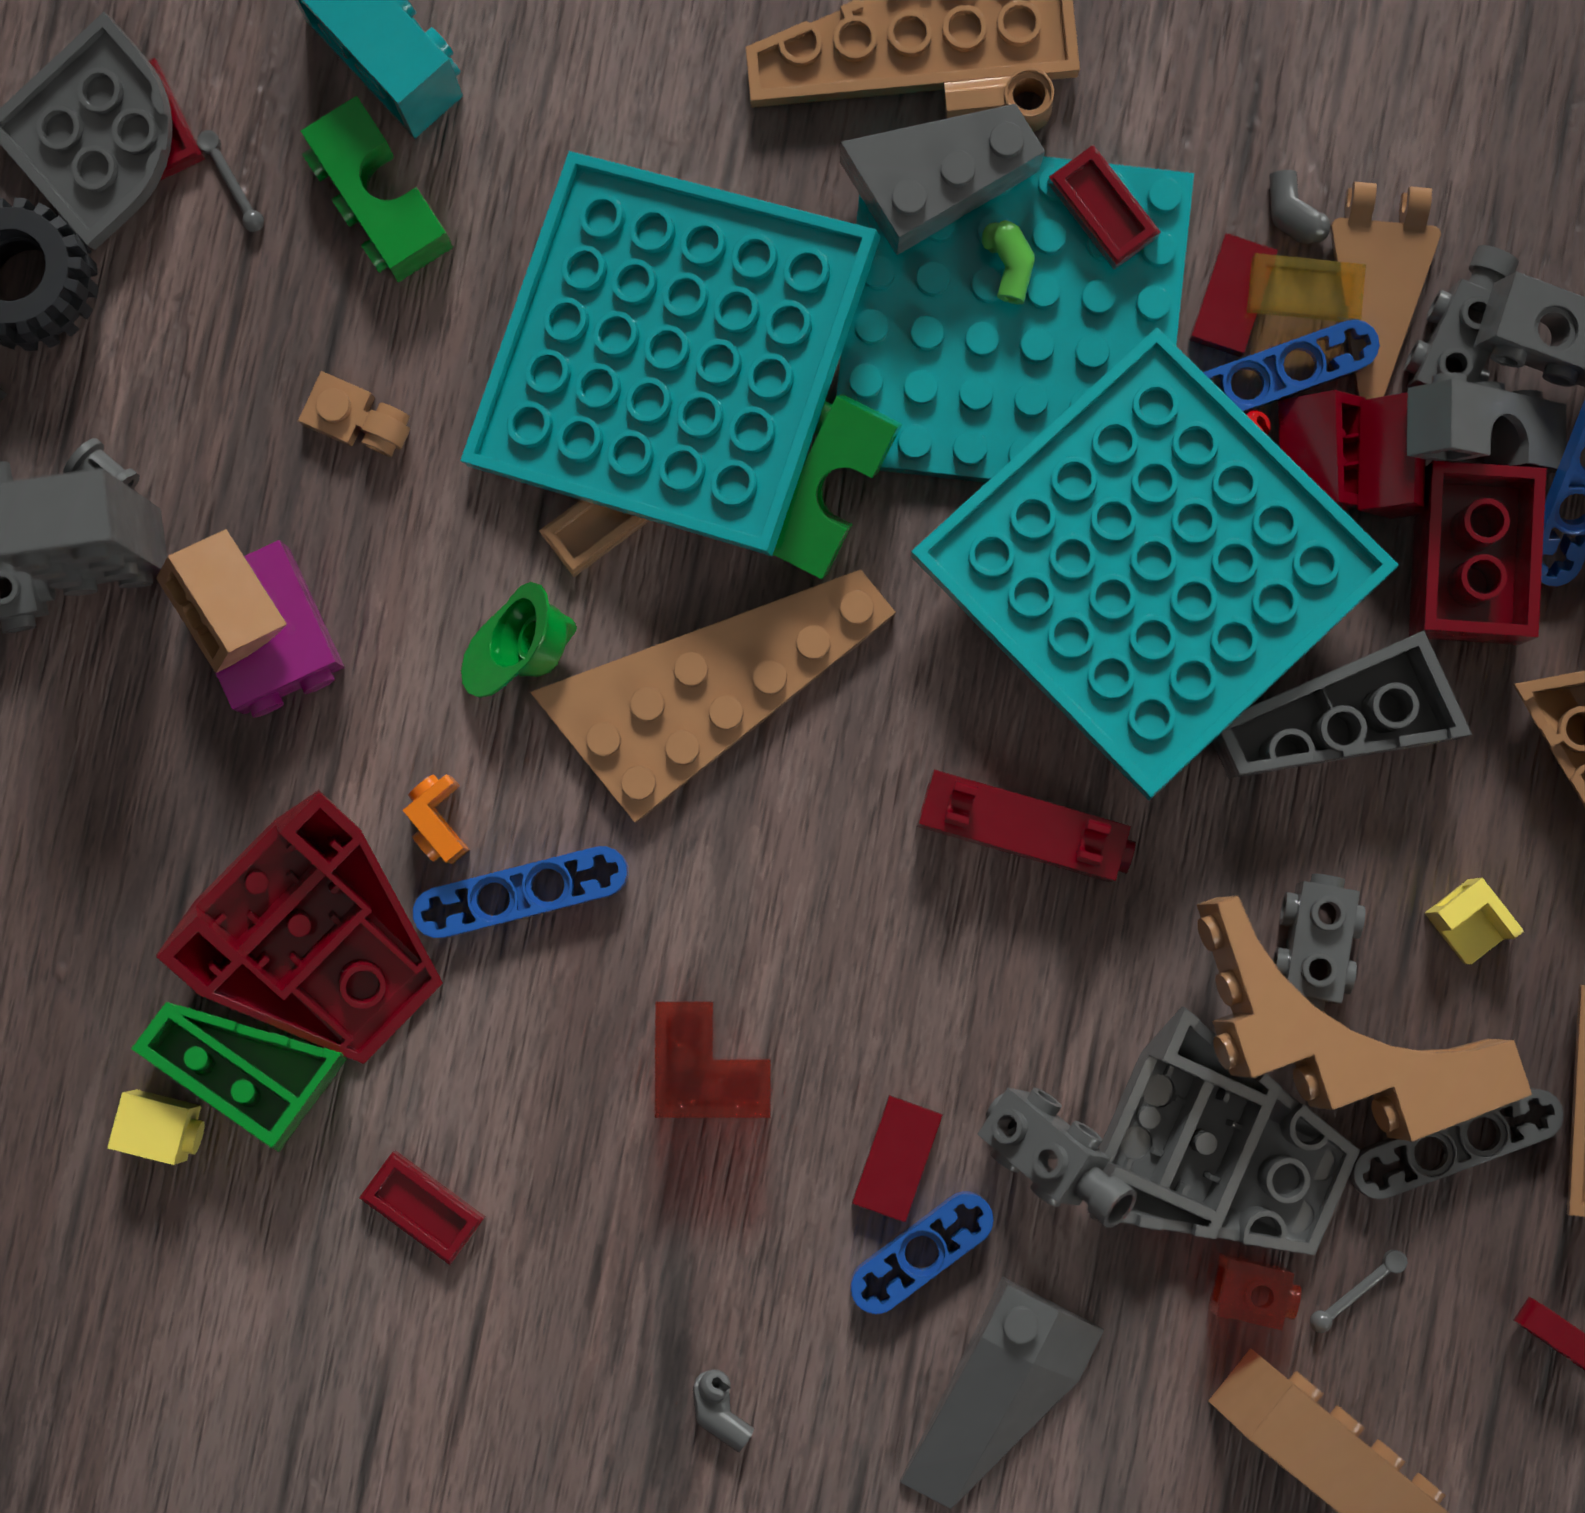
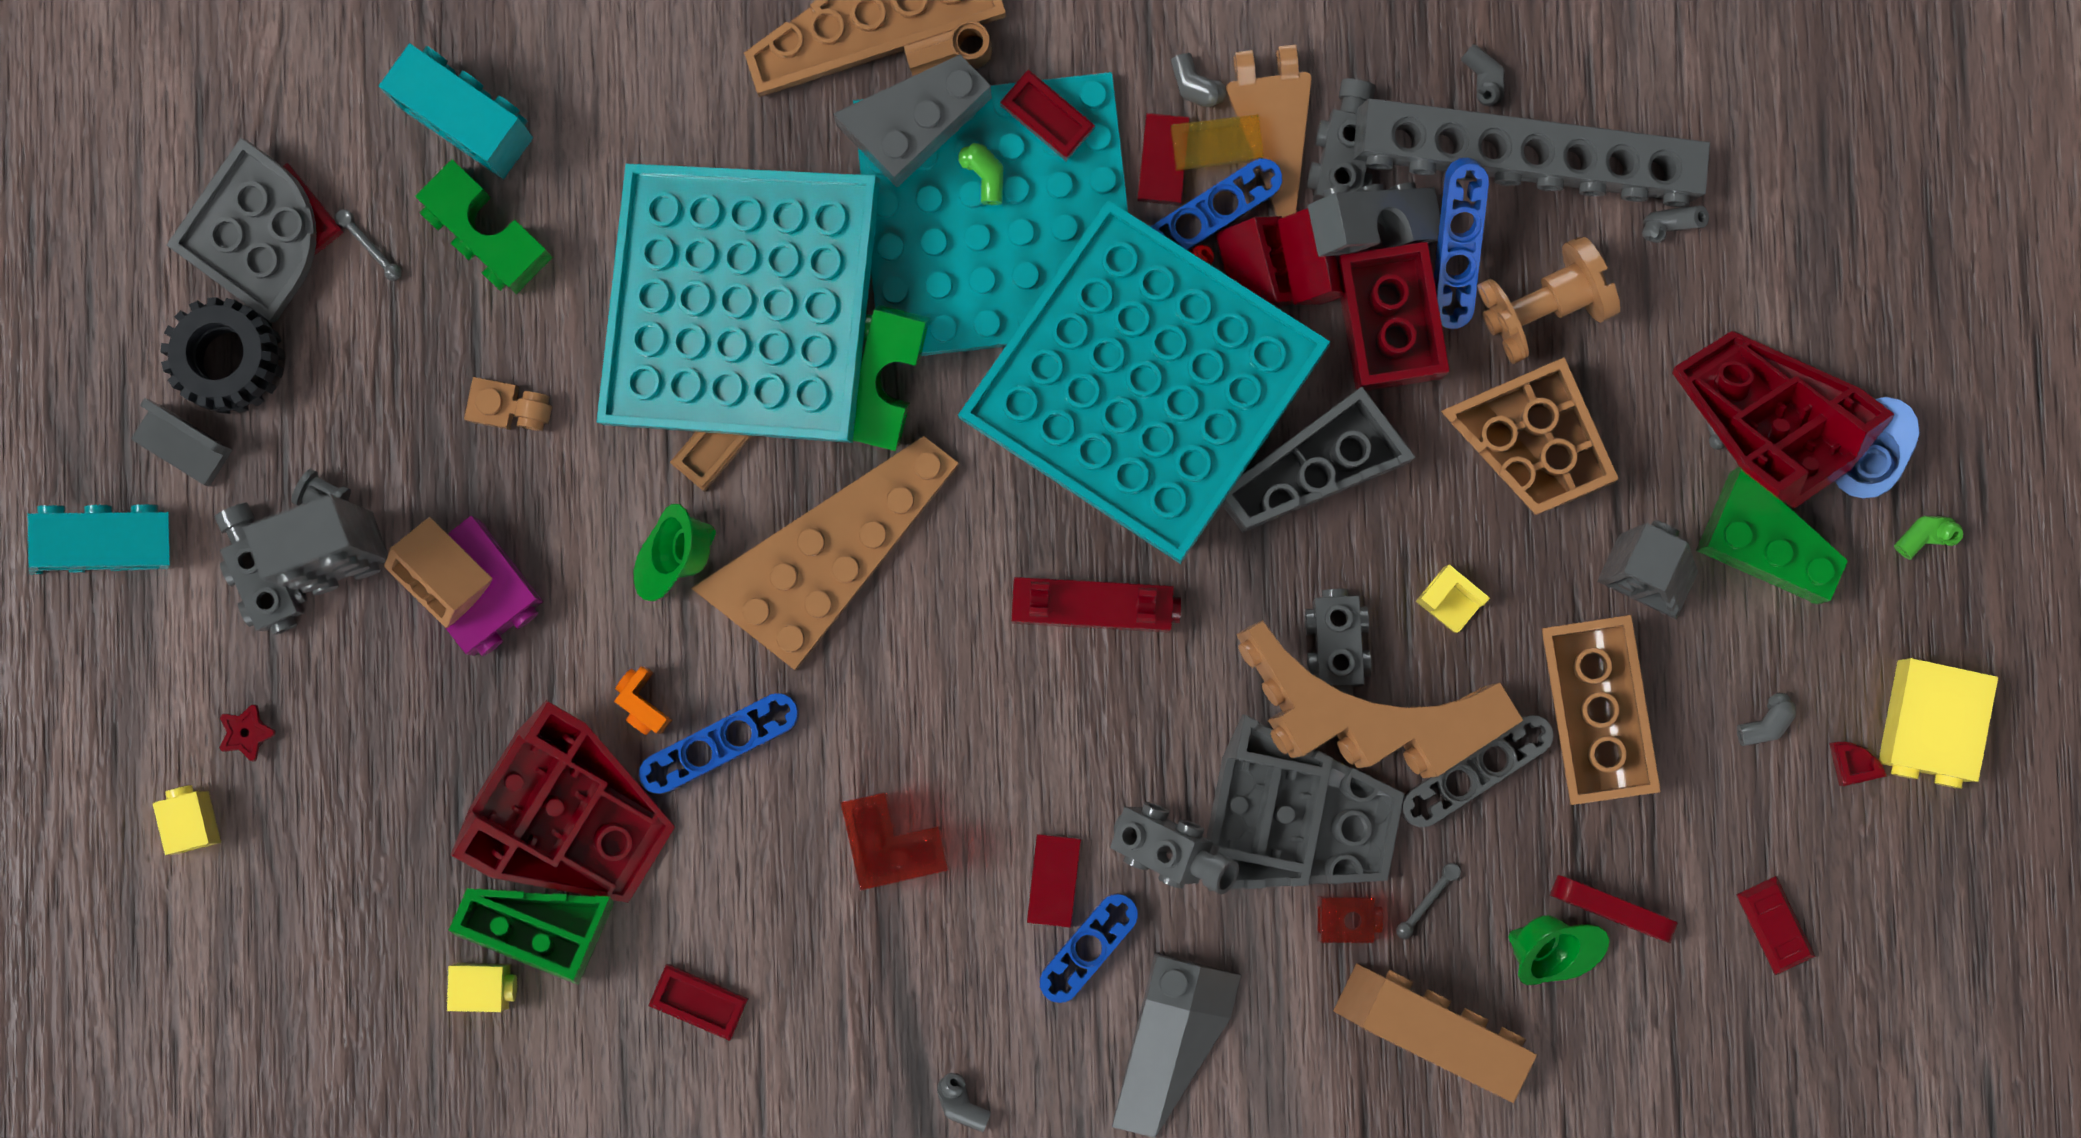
camera: 15 degrees left, 0 degrees up
(1506, 1391) = (1555, 951): none -> green piece

